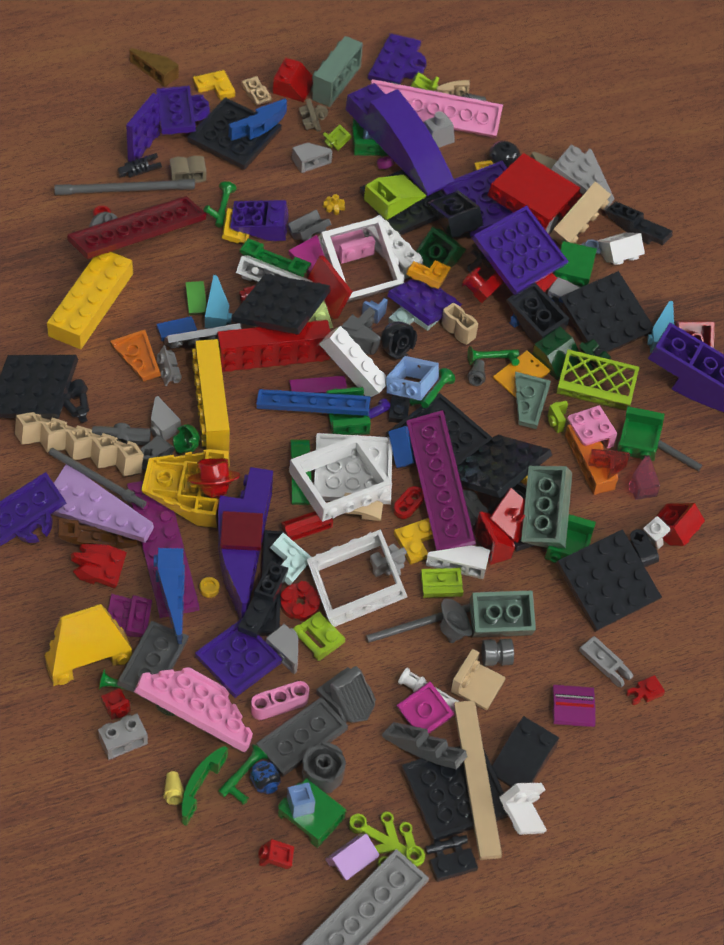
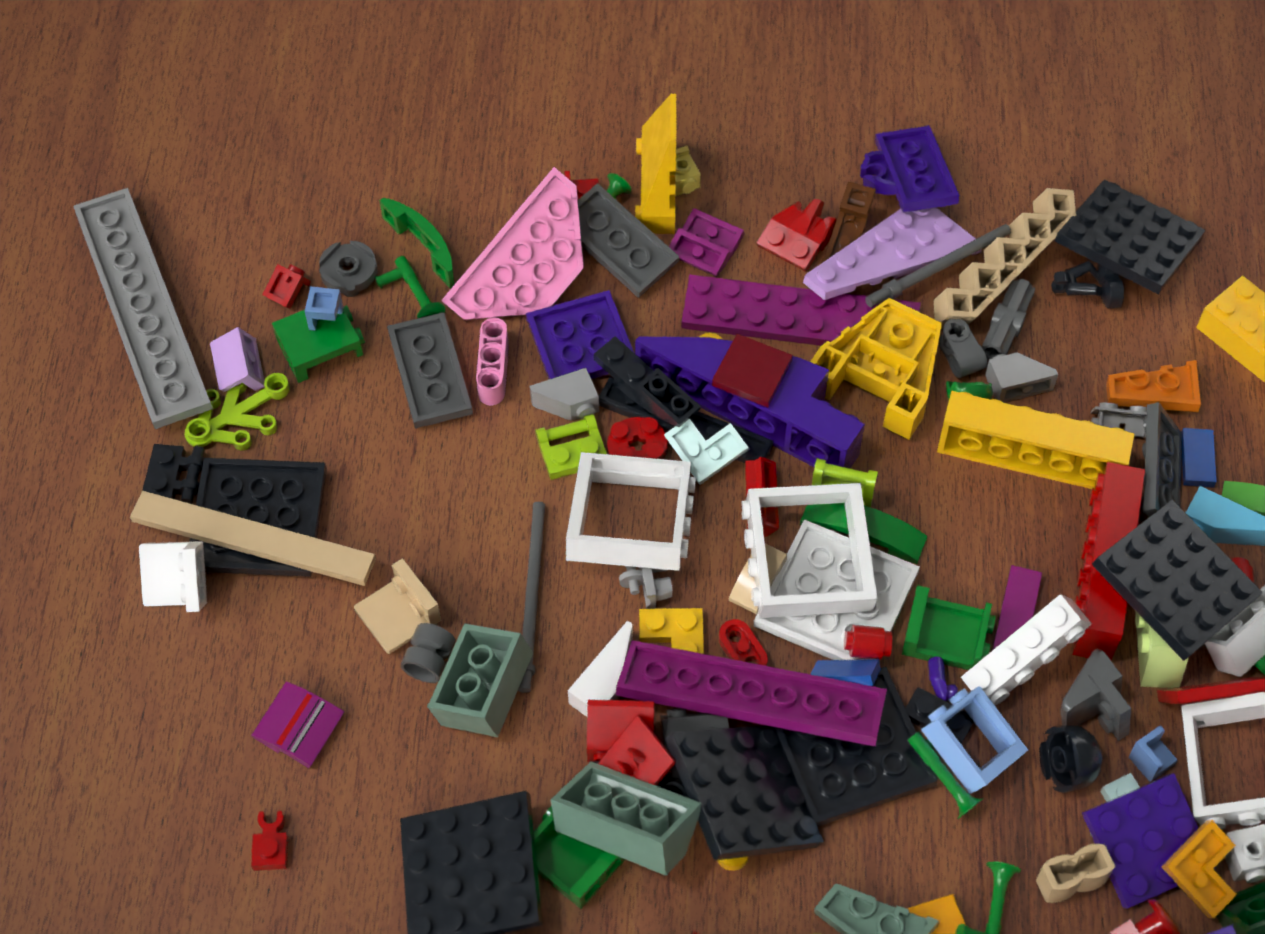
camera: 120 degrees right, 5 degrees up
(122, 736) = (527, 172): light grey brick -> none
(171, 580) = (683, 255): blue wedge -> none
(173, 789) = (434, 211): light yellow cone -> none
(213, 477) = (866, 374): red helmet -> none
(238, 812) = (350, 281): none -> dark grey plate
(265, 777) = (393, 307): head -> none
(281, 476) = (831, 474): none -> lime plate
(313, 402) = (978, 584): blue plate -> none
(324, 766) = (367, 369): dark grey brick -> none
(349, 695) = (459, 440): dark grey piece -> none
(380, 438) = (868, 642): none -> red brick
(416, 682) = (431, 536): white pin -> none
(418, 742) = (334, 496): dark grey slope -> none
(426, 708) = (388, 524): dark pink tile -> none
(442, 582) = (582, 634): lime plate -> none
(454, 621) = (507, 612): dark grey piece -> none
(477, 373) = (964, 865): dark grey cone -> none
(525, 753) = (259, 623): black slope -> none
(605, 661) = (344, 804): light grey hinge -> none

